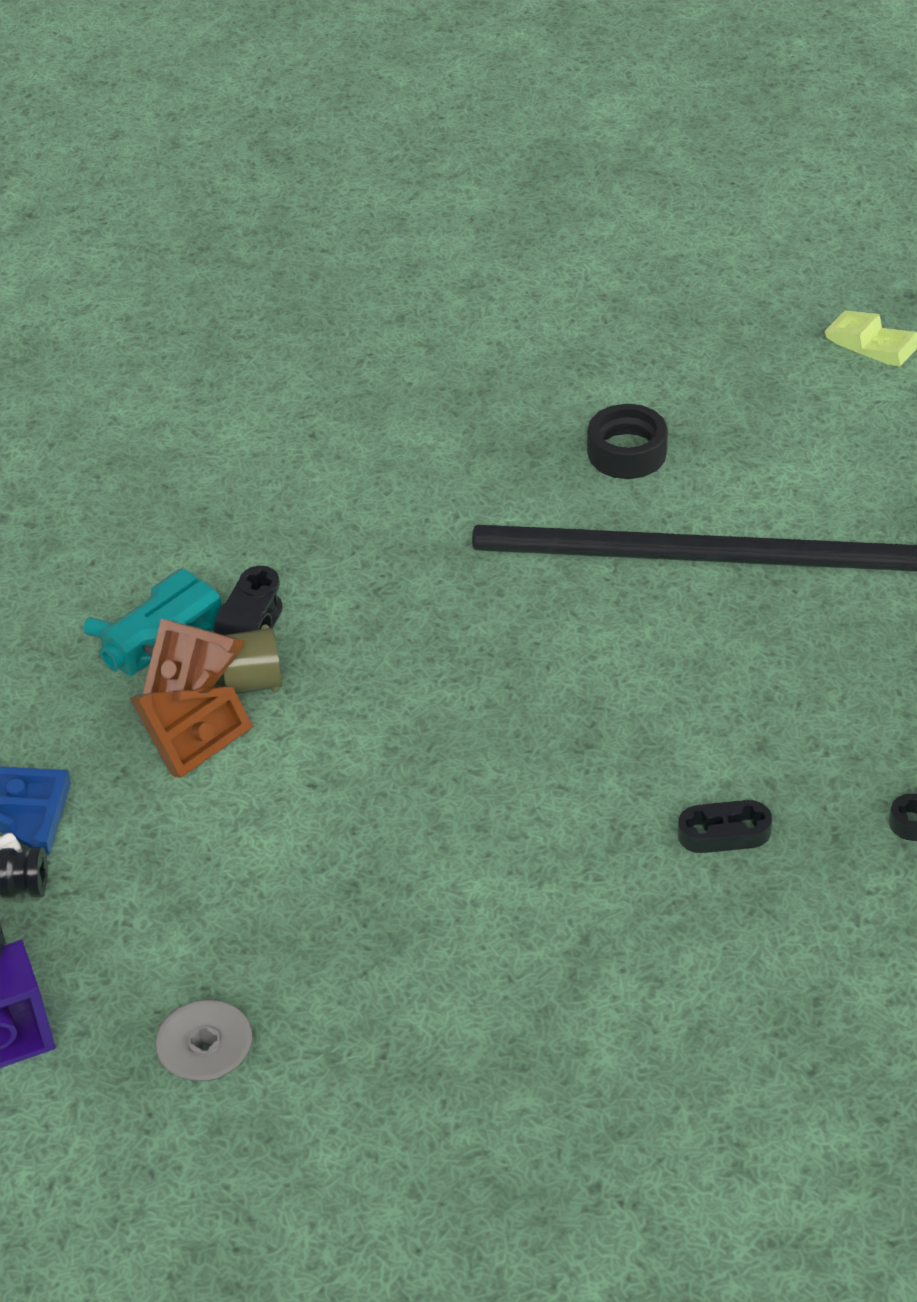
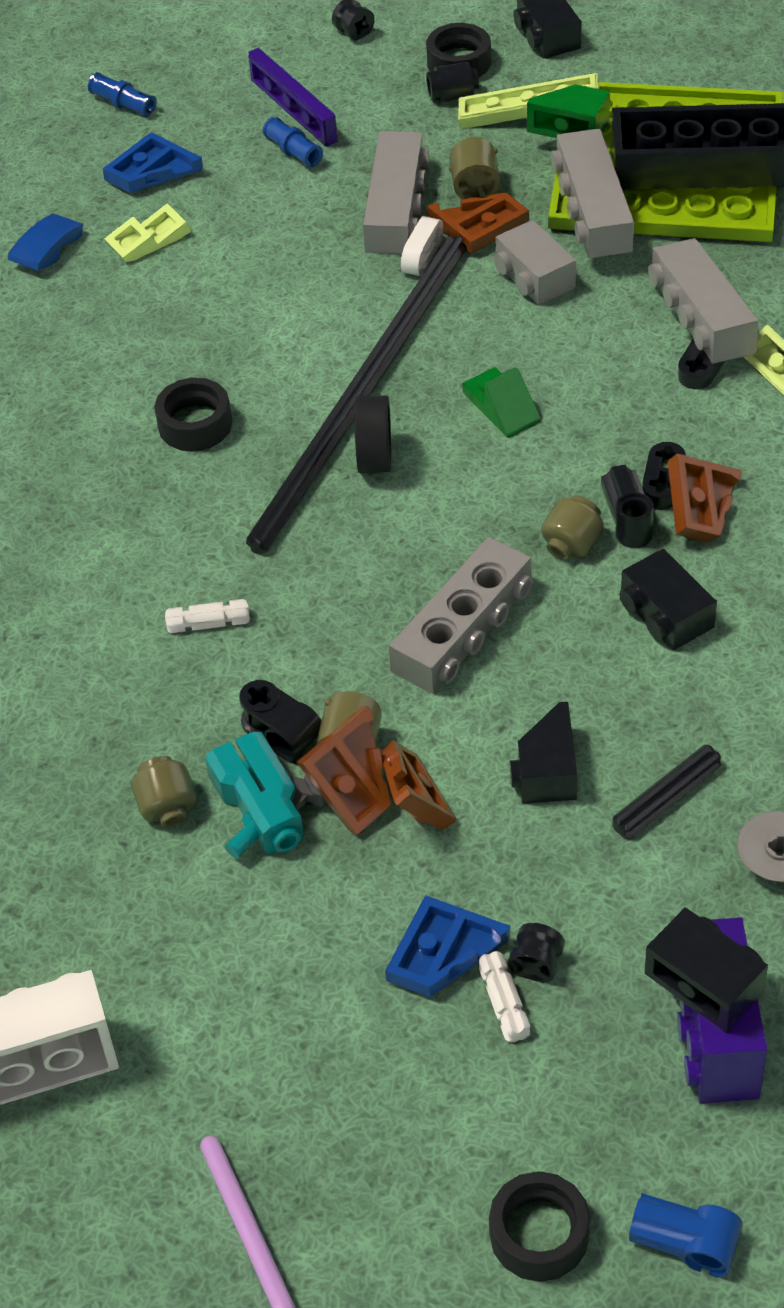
camera: 70 degrees left, 5 degrees up
(142, 560) = (163, 791): none -> olive head
(265, 934) = (666, 791): none -> black axle
(270, 820) = (547, 760): none -> black slope
(372, 532) = (207, 616): none -> white axle
(436, 705) = (461, 615): none -> light grey brick
(524, 867) = (667, 599): none -> black brick
(596, 761) = (572, 527): none -> olive head
(630, 546) = (373, 434): none -> black tyre
(643, 804) = (629, 506): none -> black piece
(695, 861) = (700, 496): none -> dark orange wing
(770, 661) = (503, 400): none -> green slope
(802, 271) = (43, 241): none -> blue slope

